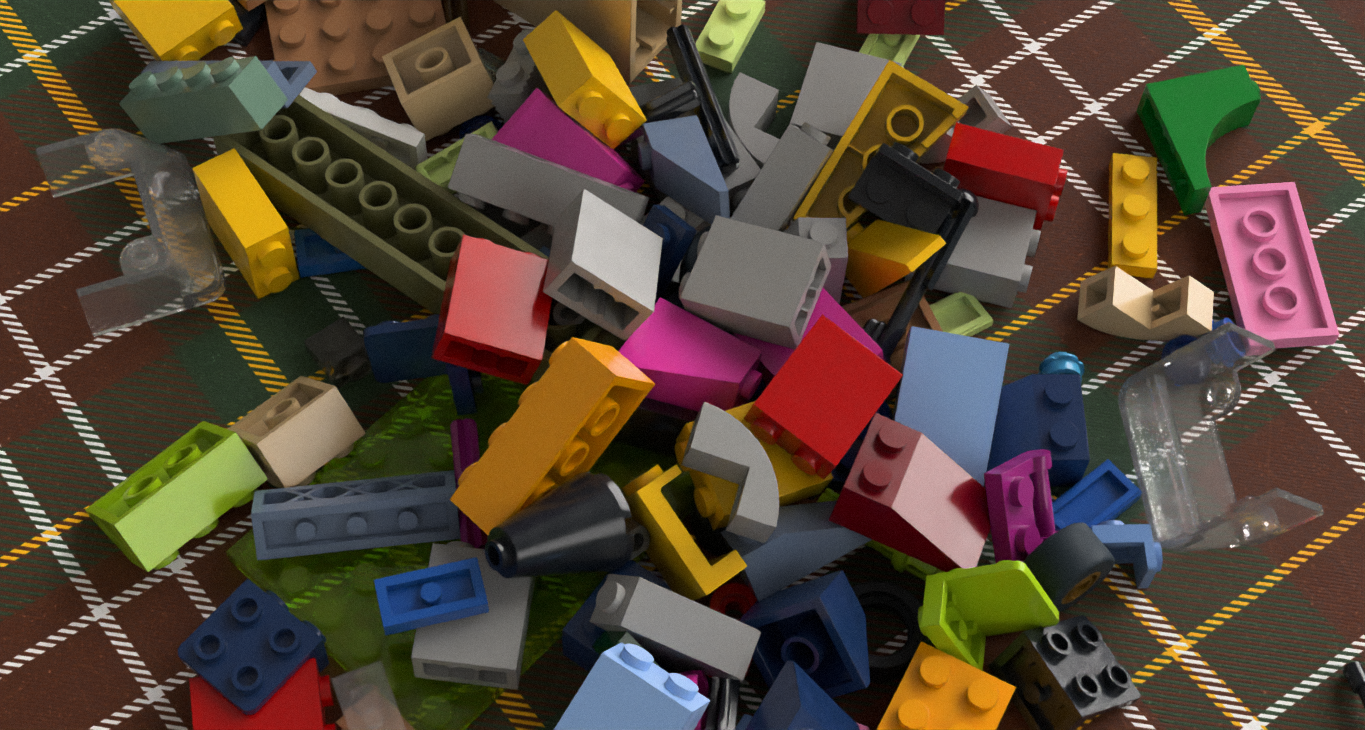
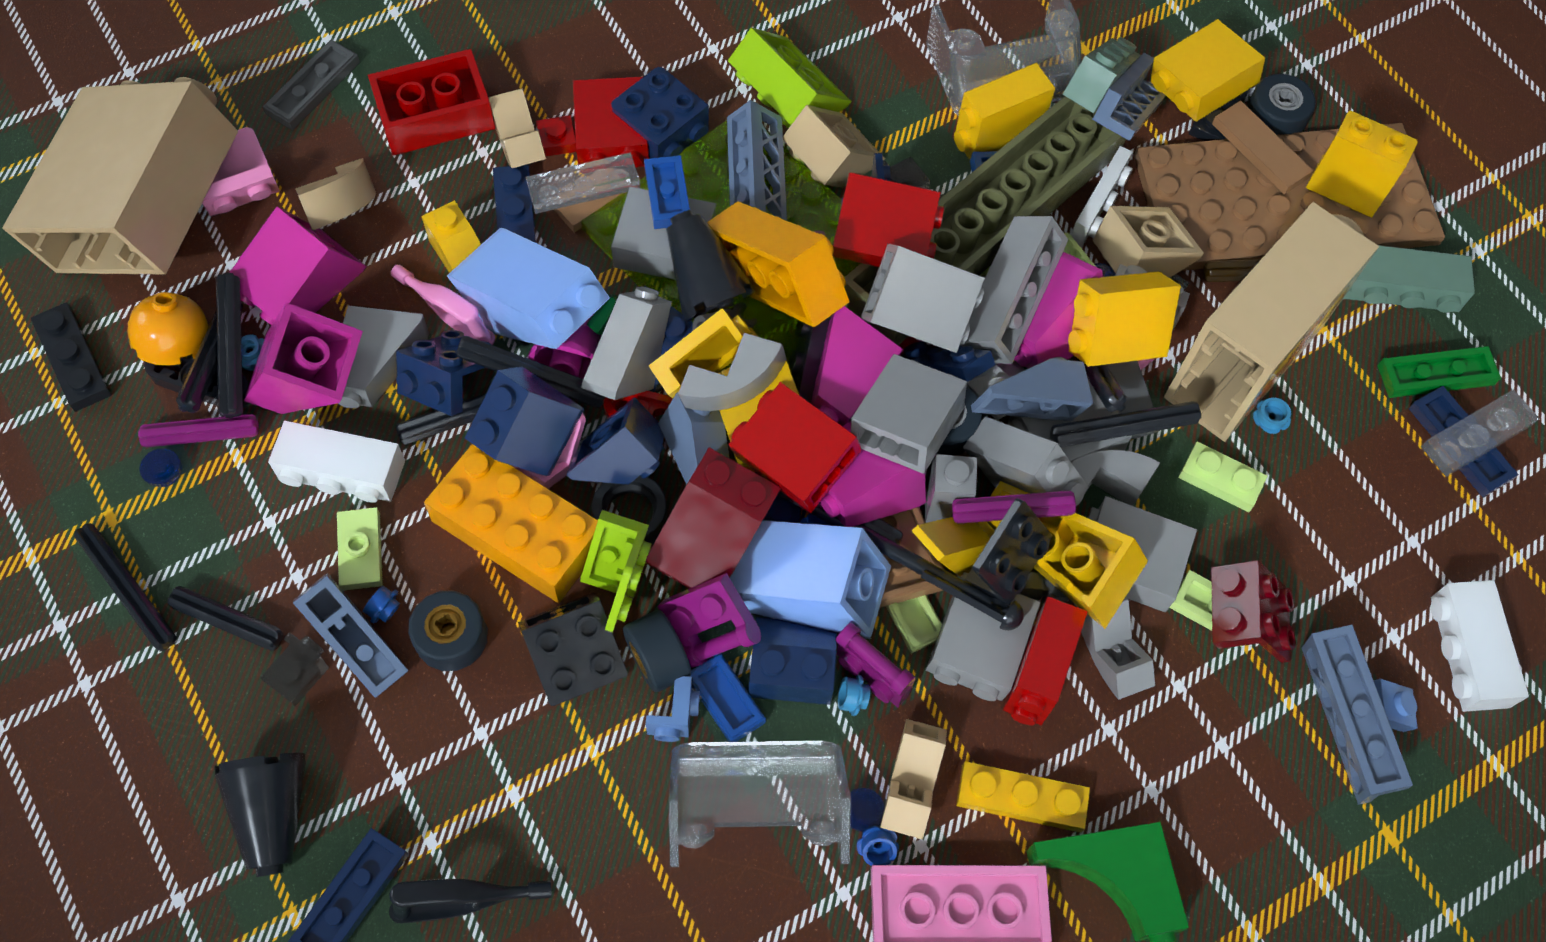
camera: 95 degrees right, 5 degrees up
(852, 184) = (995, 507): none -> magenta axle
(1041, 338) = (862, 658): none -> magenta plate

